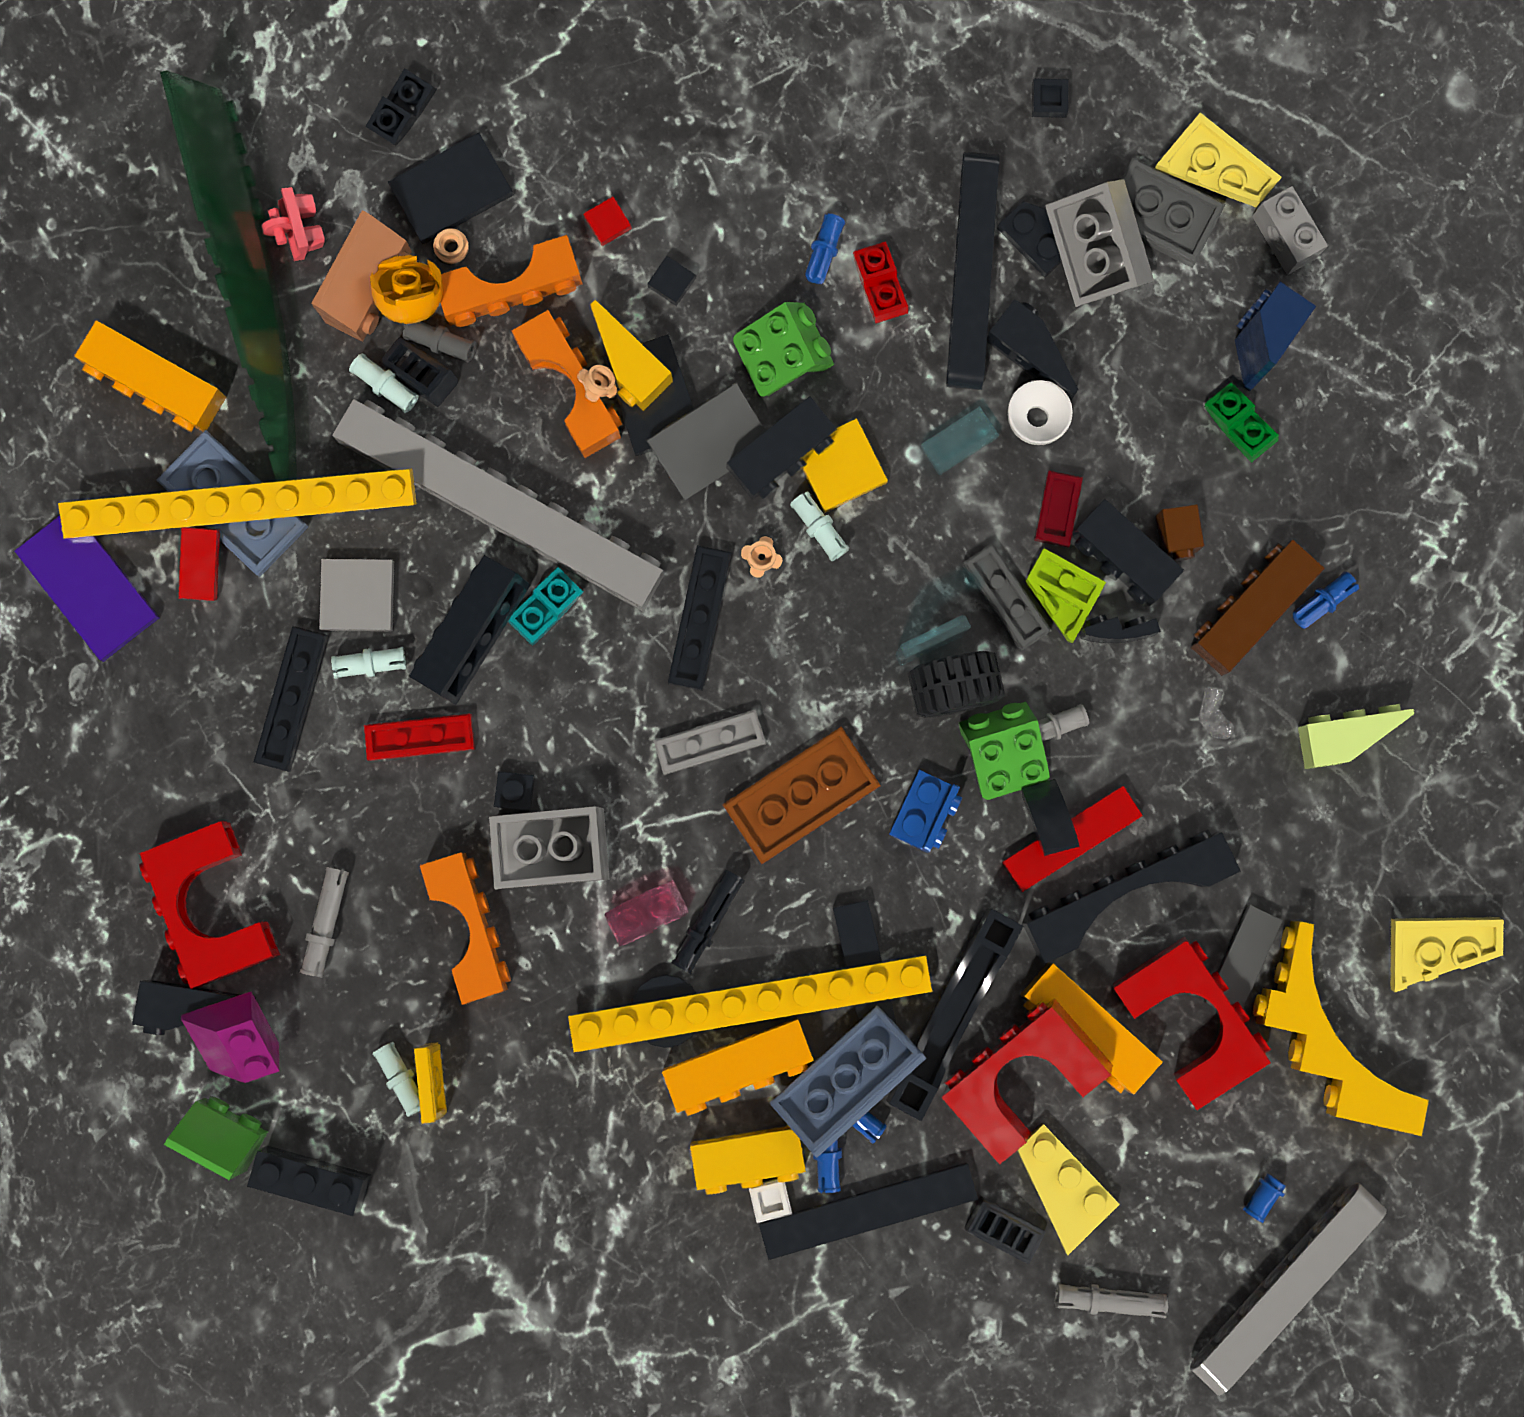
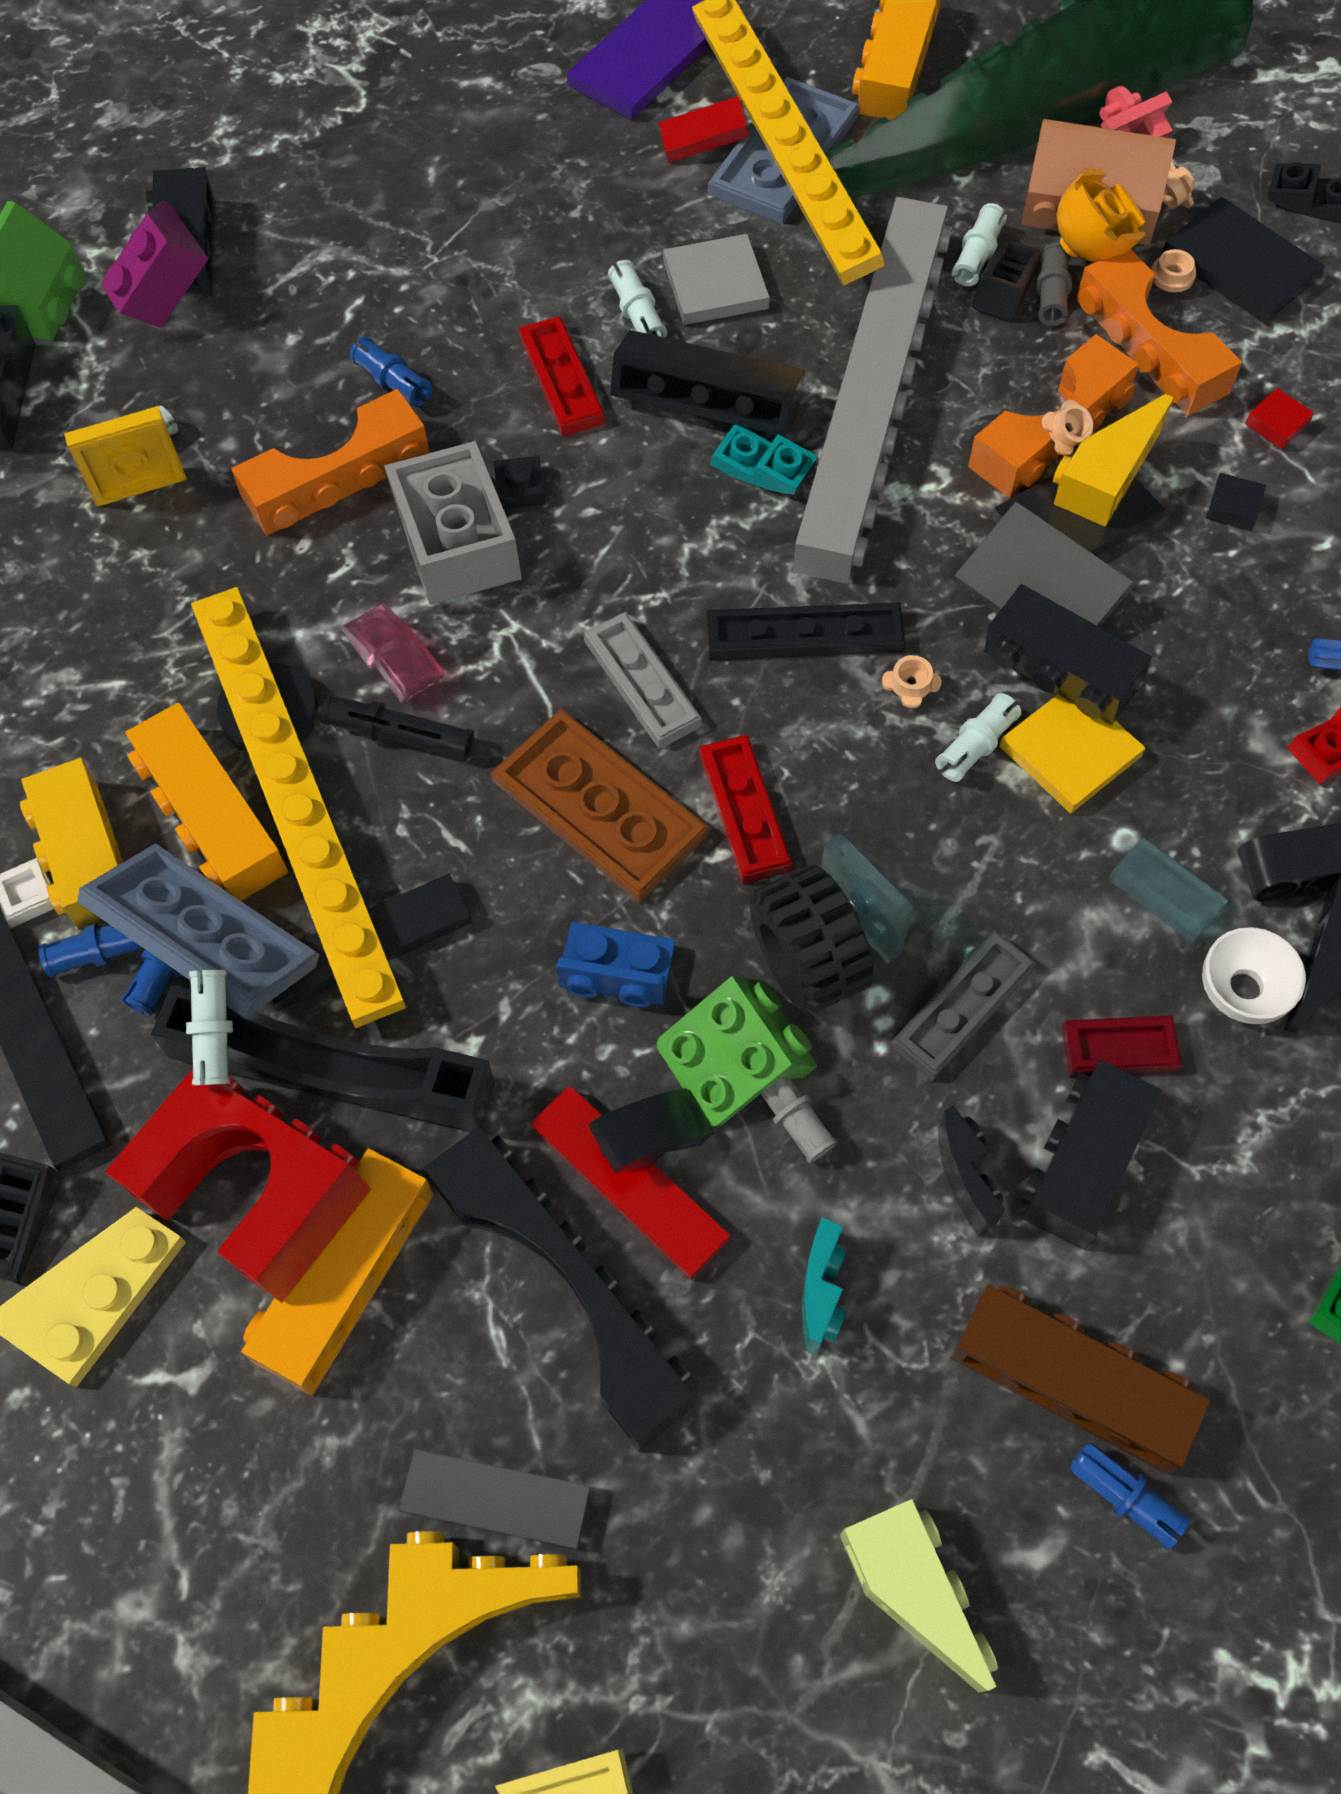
camera: 80 degrees right, 20 degrees down
(171, 872) = (334, 180): red arch -> none
(291, 699) = (571, 247): black tile -> none
(324, 922) = (309, 329): light grey pin -> none
(370, 207) = (1179, 188): none -> light nougat plate
(384, 868) = (390, 371): none -> blue pin
(782, 347) = (1213, 635): bright green bracket -> none
(830, 698) = (745, 809): none -> red tile
(933, 1081) = (209, 1027): none -> light aqua pin
(1064, 591) = (1001, 1078): lime wing -> none
(1179, 743) = (820, 1298): none -> teal slope
(1180, 532) = (1154, 1226): reddish brown brick -> none
(1211, 716) = (878, 1351): clear arm -> none
(1235, 1052) = (347, 1510): red arch -> none
(1264, 1197) = (105, 1628): blue pin -> none

